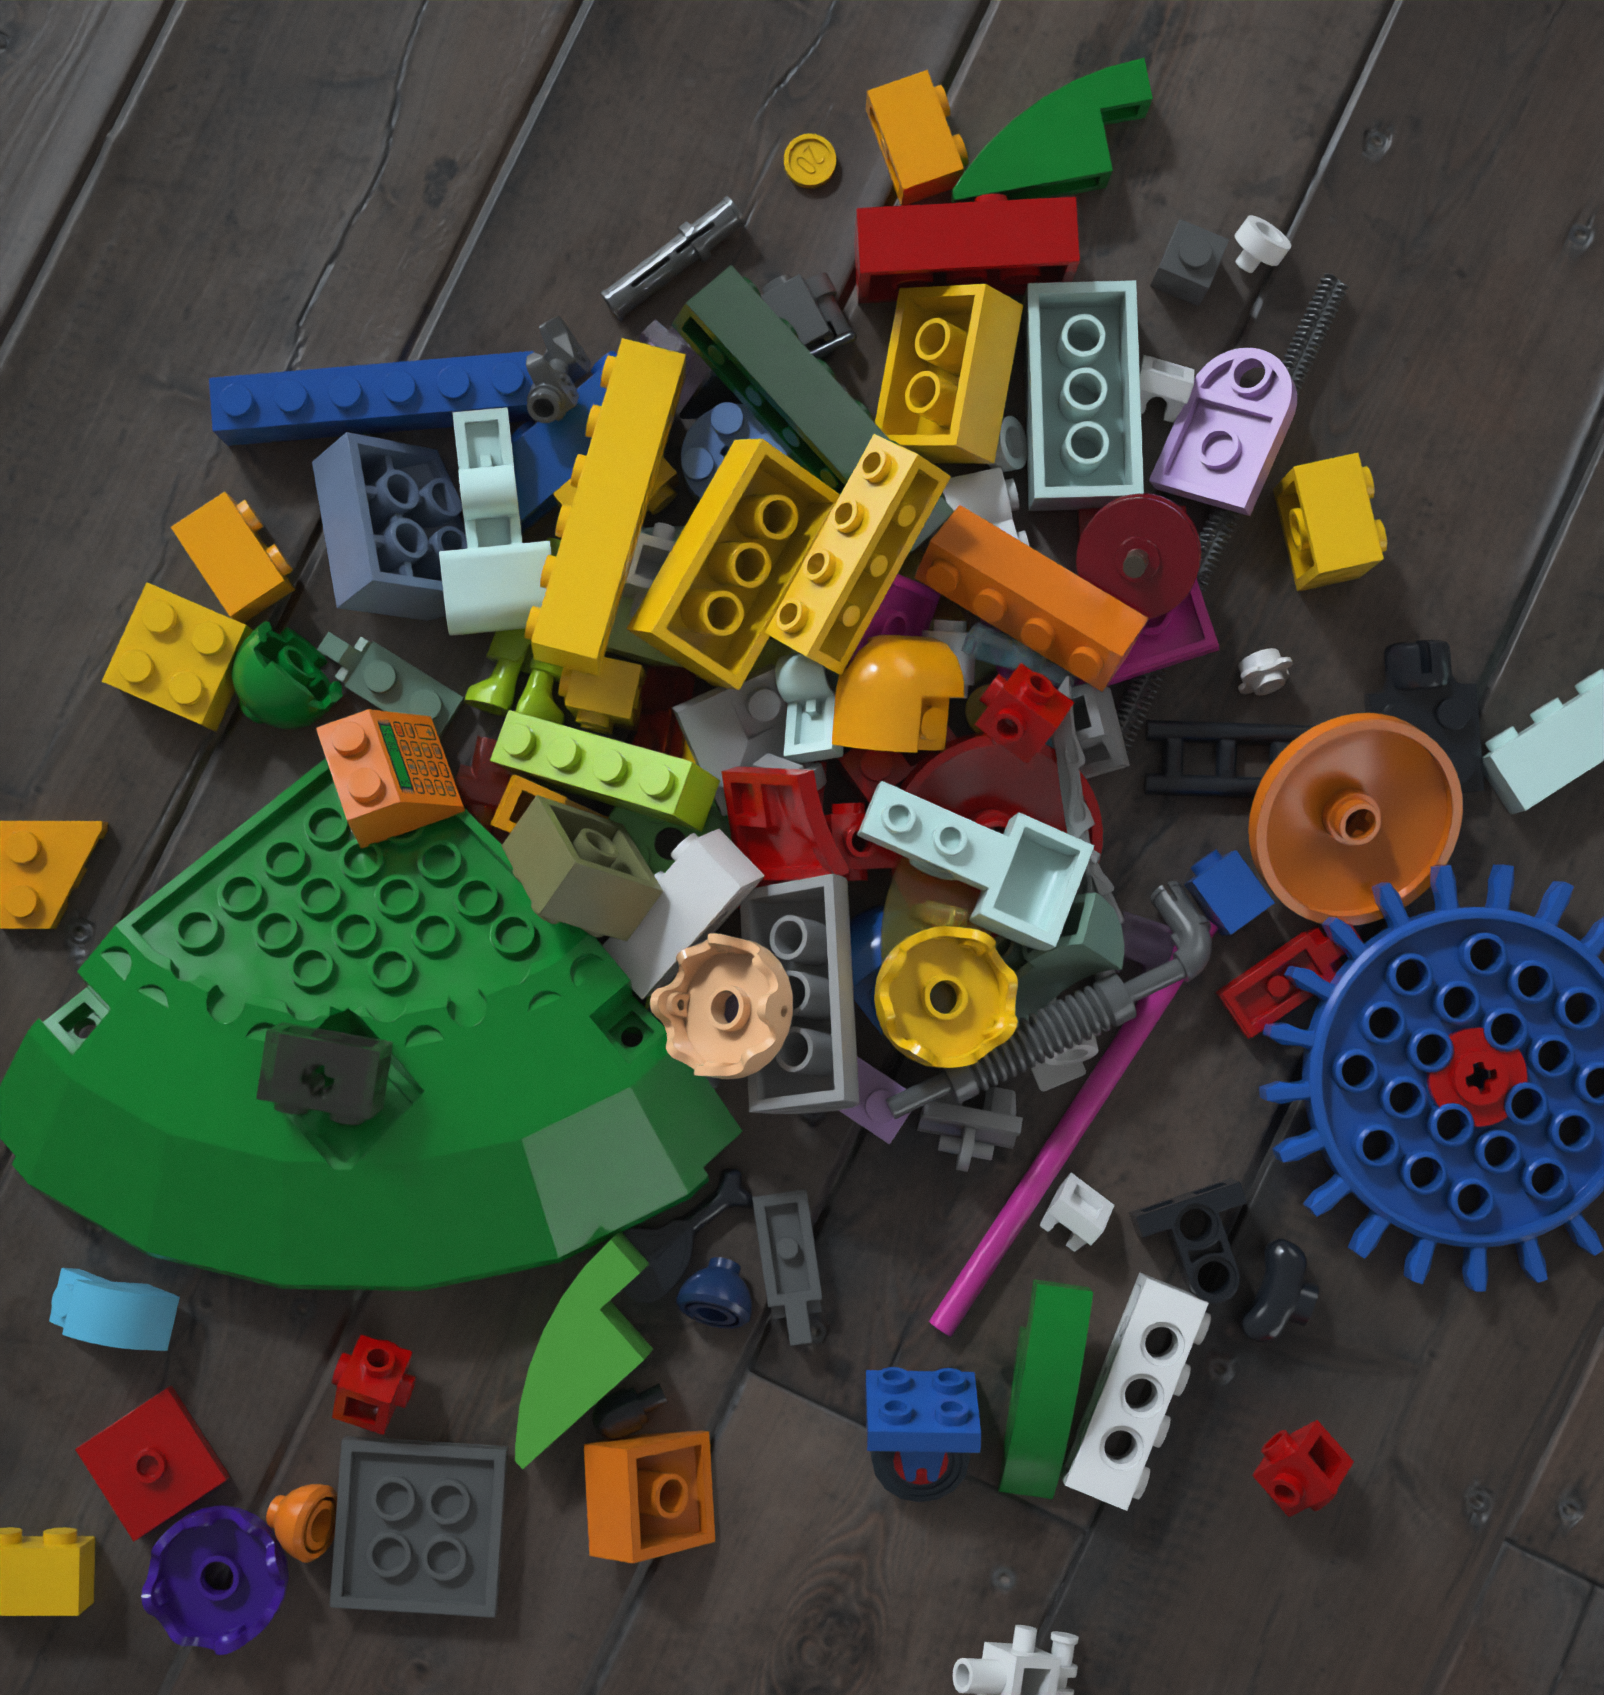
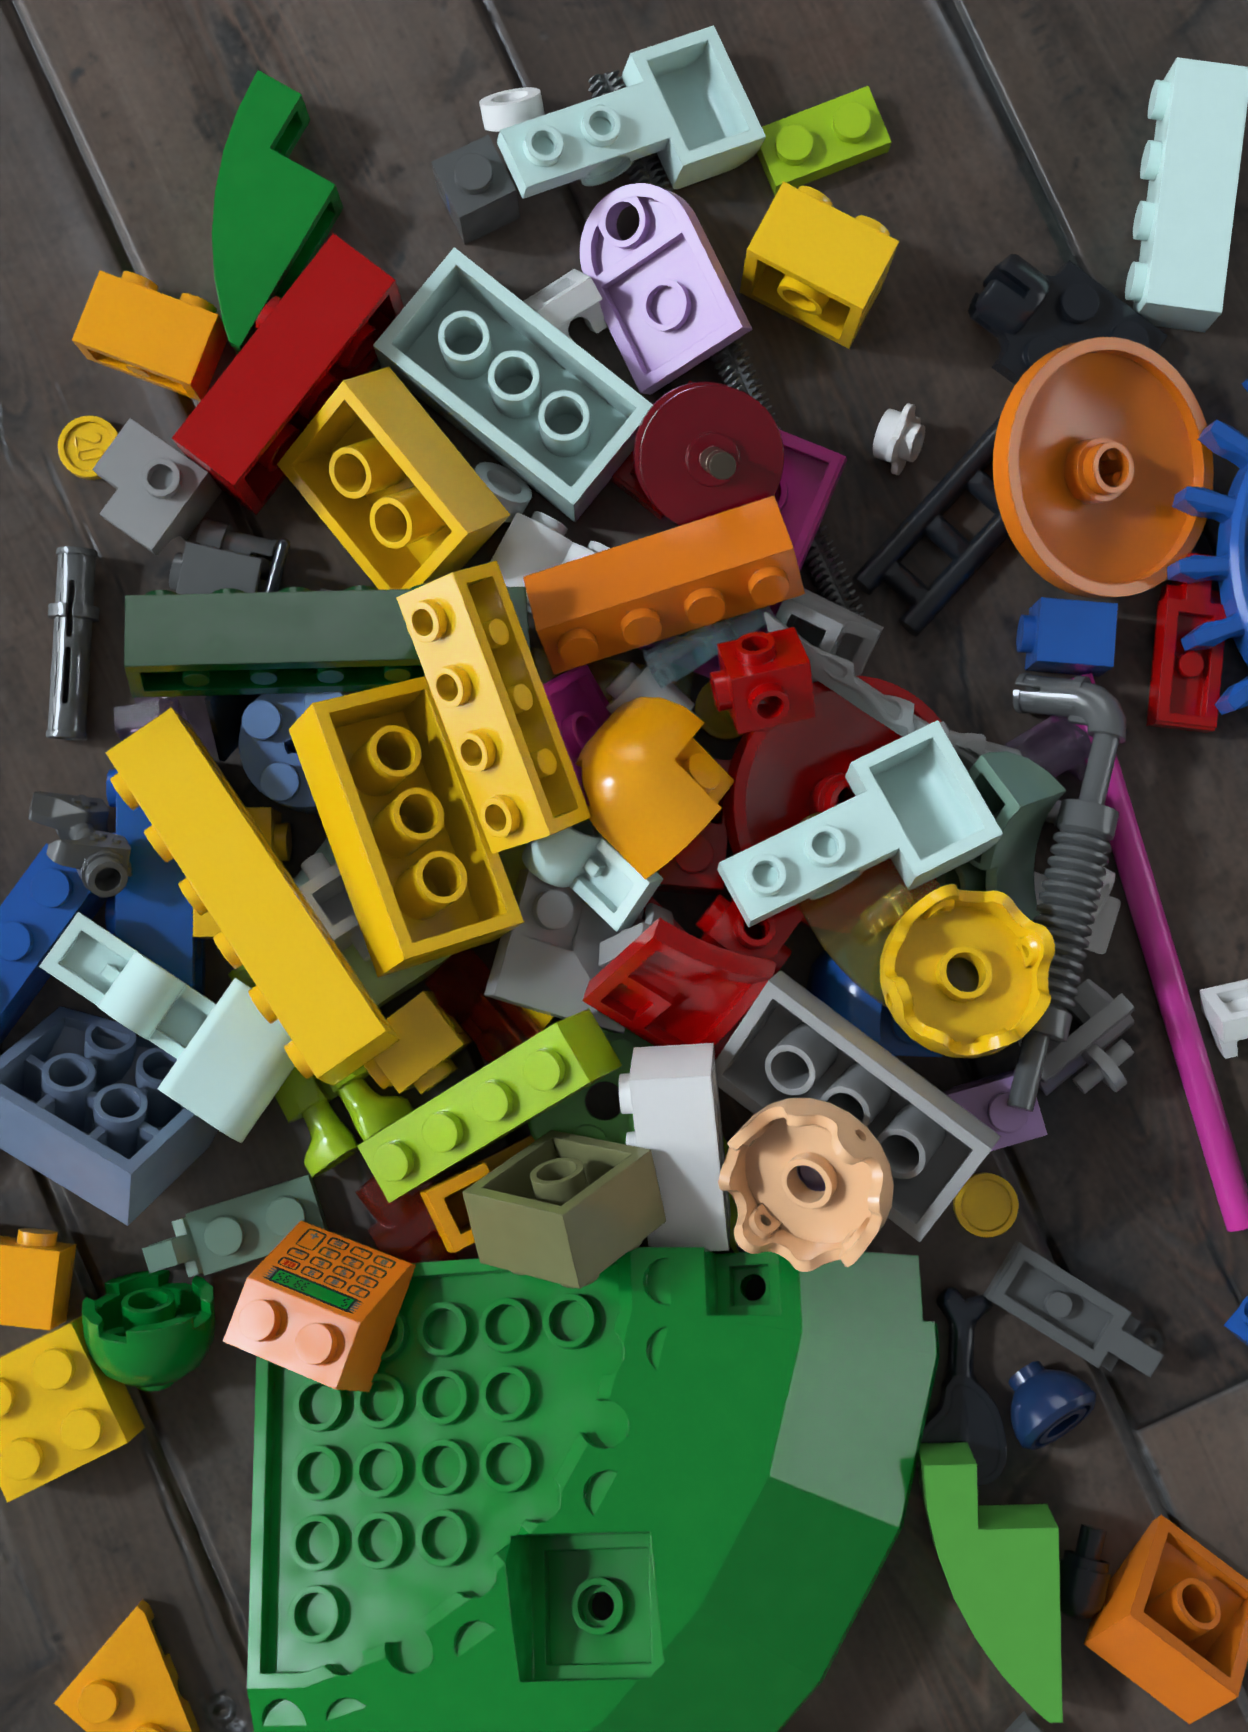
camera: 50 degrees left, 0 degrees up
(354, 1061) = (565, 1581): clear smoke brick -> none
(812, 1150) = (986, 1205): none -> yellow piece
(819, 226) = (156, 486): none -> light grey brick
(1357, 344) = (675, 103): none -> light aqua plate
(1418, 457) = (823, 140): none -> lime plate

